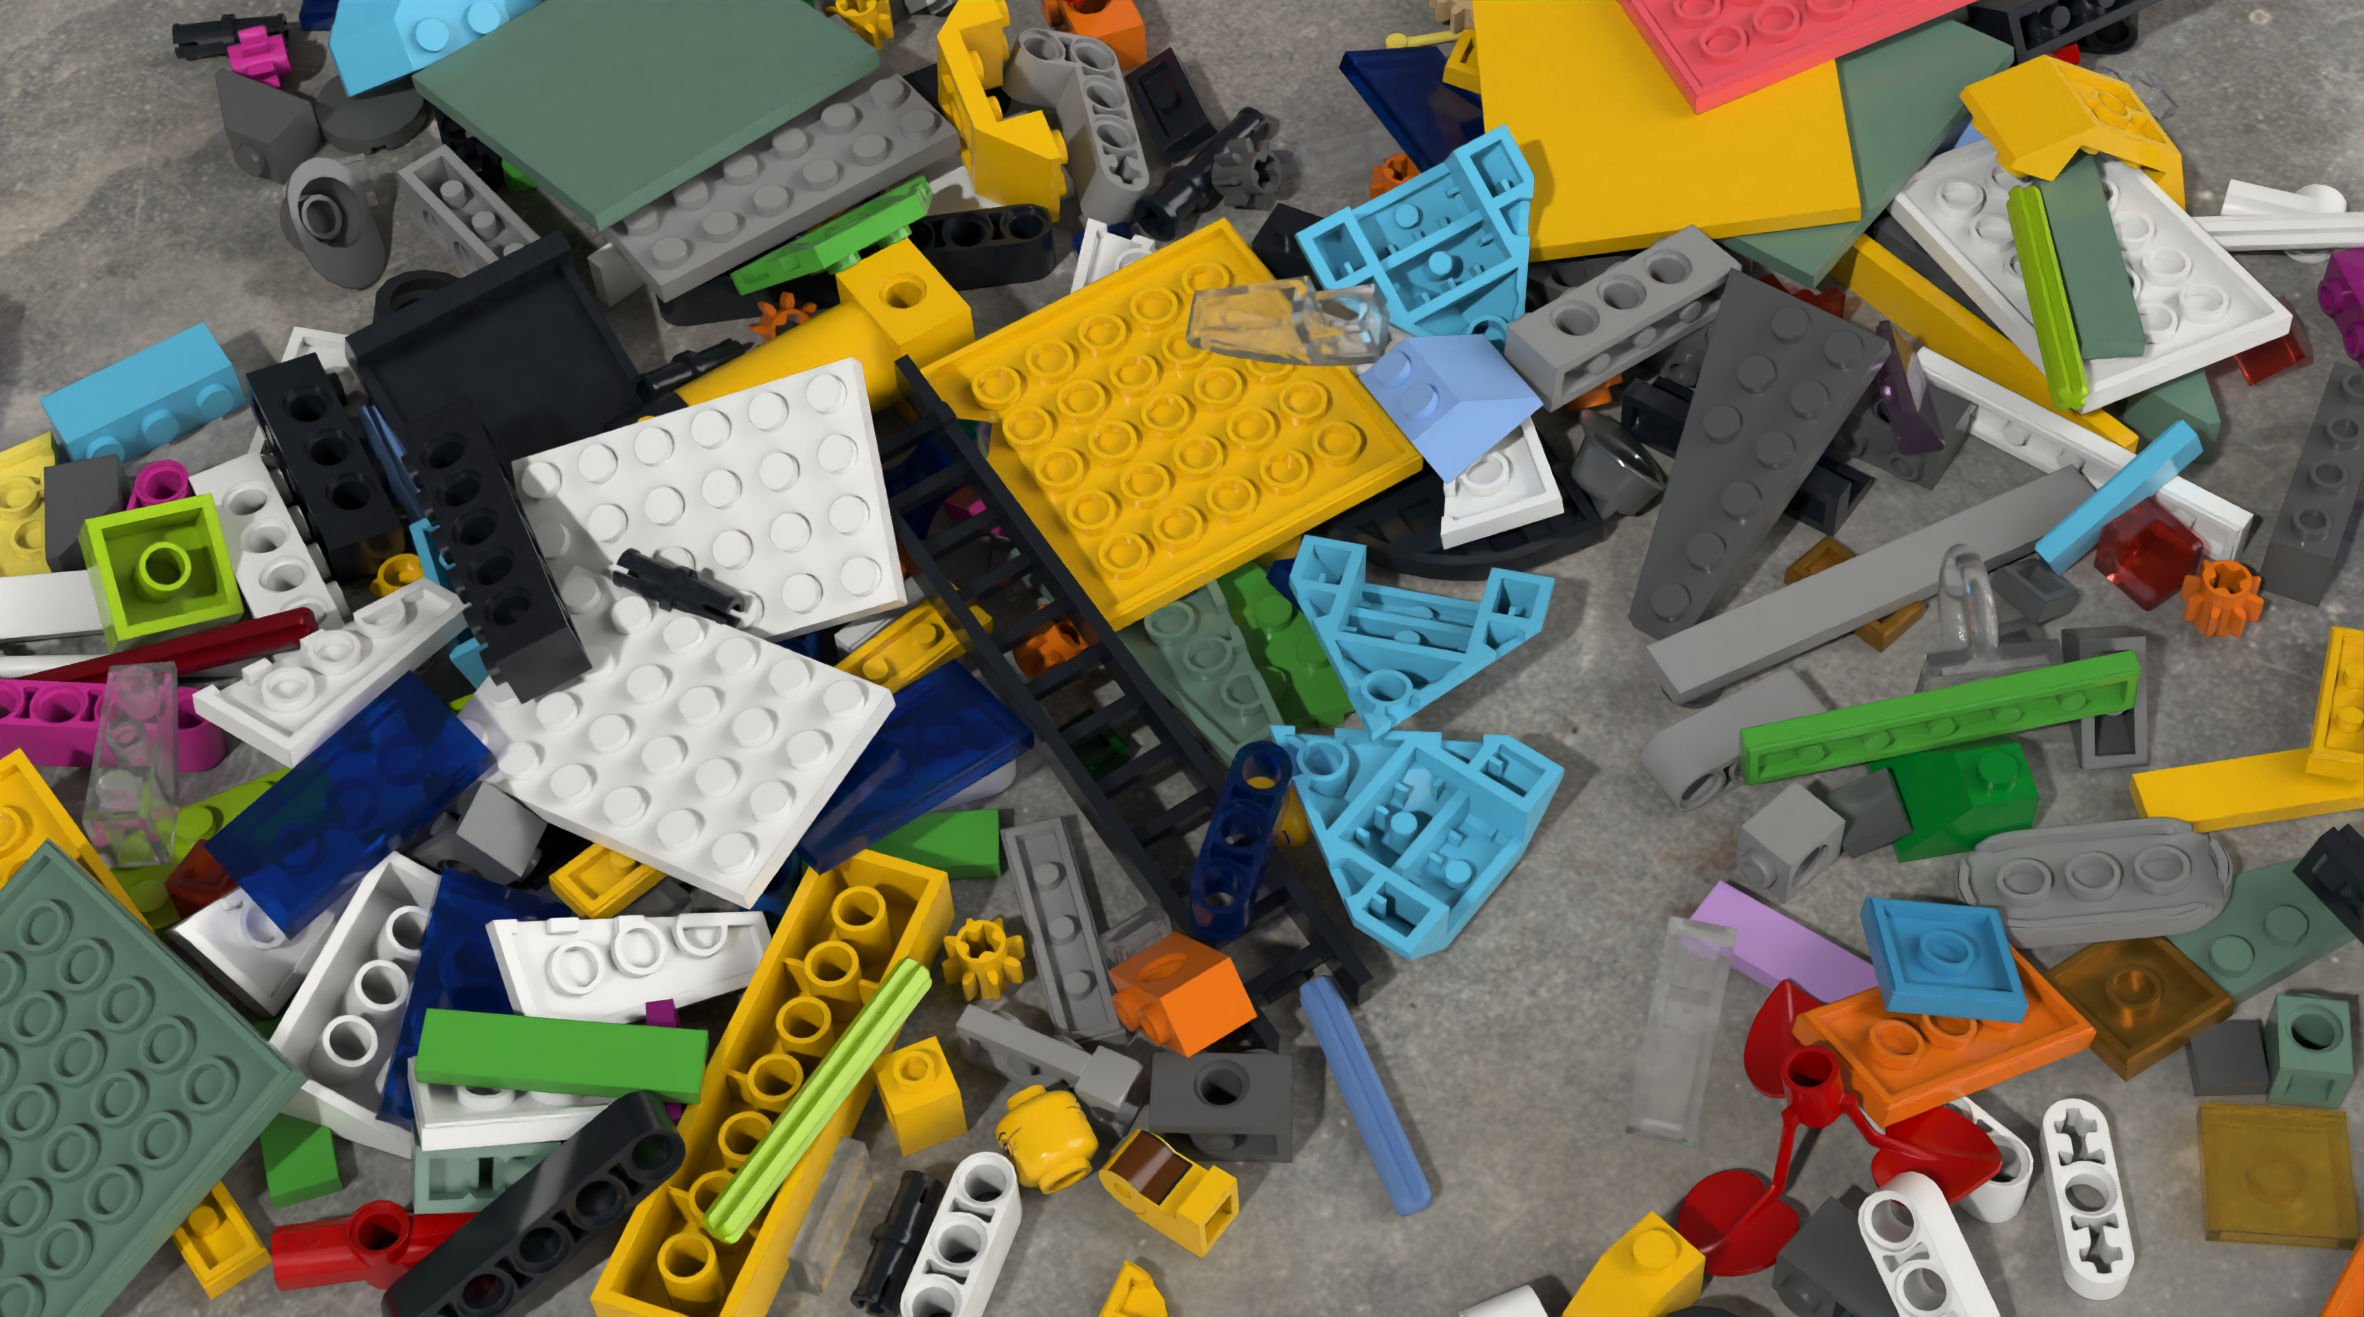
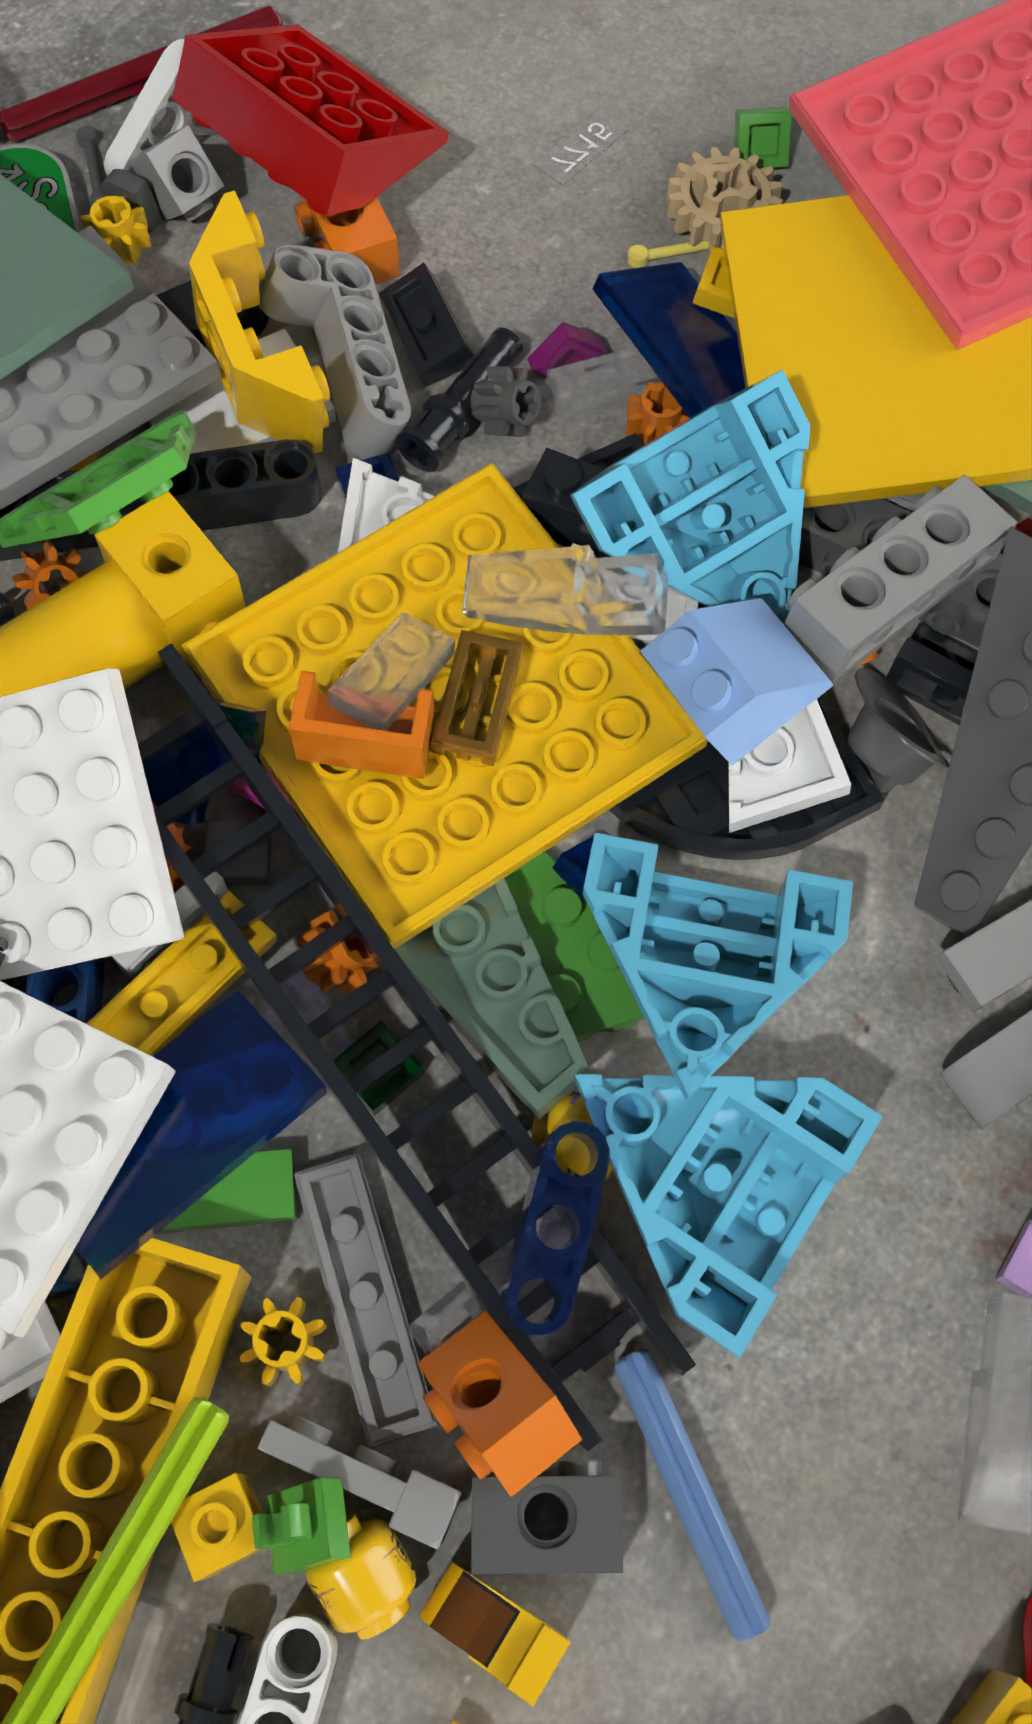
camera: 10 degrees left, 15 degrees up
(995, 1080) = (304, 1526): none -> bright green tile
(1083, 442) = (333, 738): none -> orange panel
(1114, 389) = (391, 672): none -> clear tile
(1185, 454) = (466, 745): none -> pearl gold tile
(1312, 124) = (563, 347): none -> magenta tile

